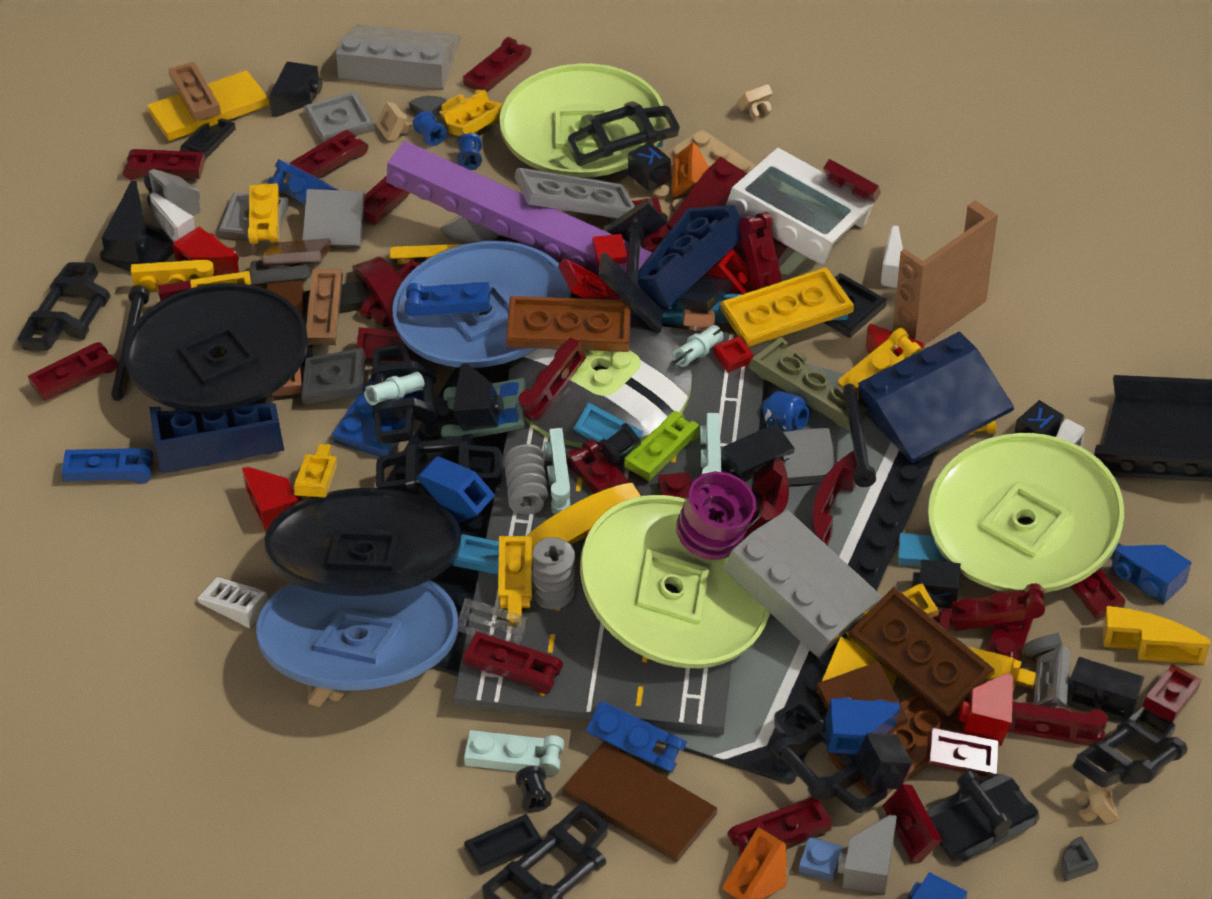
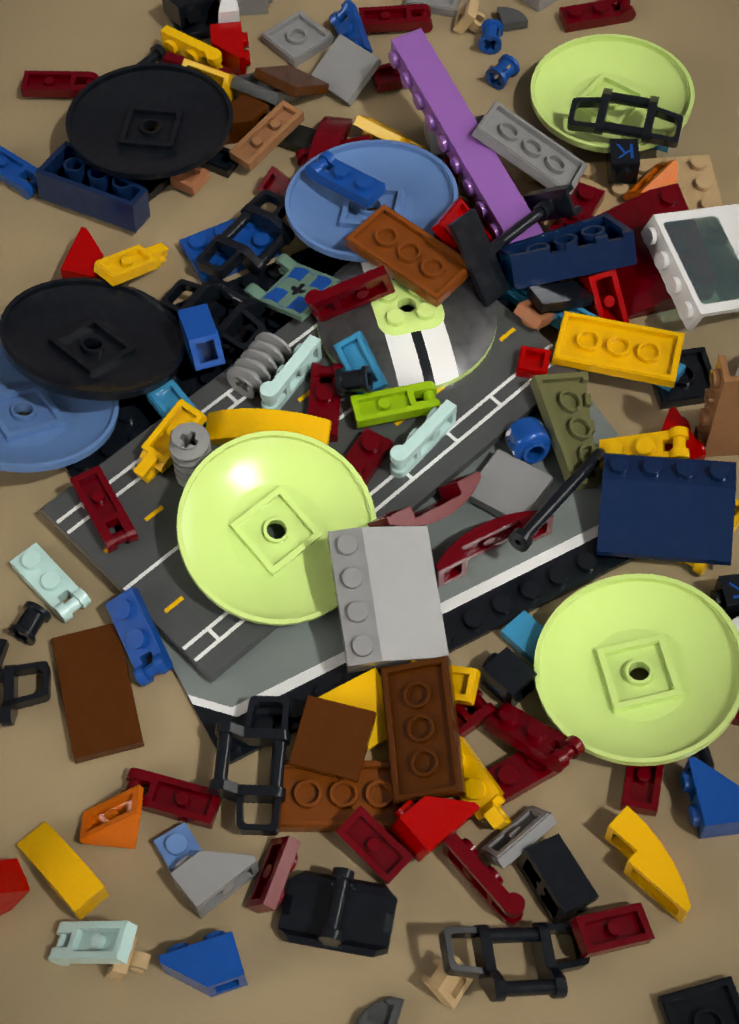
camera: 40 degrees right, 10 degrees up
(56, 321) = (83, 41): black bar -> none
(263, 213) = (299, 38): yellow plate -> none
(333, 376) = (222, 195): dark grey tile -> none
(394, 388) = (242, 229): light aqua pin -> none
(469, 114) = (532, 40): yellow slope -> none
(476, 401) = (284, 275): black slope -> none
(518, 632) = (120, 462): clear tile -> none
(612, 245) = (506, 211): red tile -> none
(697, 346) = (505, 337): light aqua pin -> none
(715, 515) = (345, 474): magenta wheel -> none
(756, 450) = (460, 458): black hinge -> none
(760, 250) = (638, 286): dark red plate -> none
(851, 719) = (298, 757): blue slope -> none
(883, 761) = (284, 805): black brick -> none
(1042, 645) = (539, 799): dark grey tile -> none

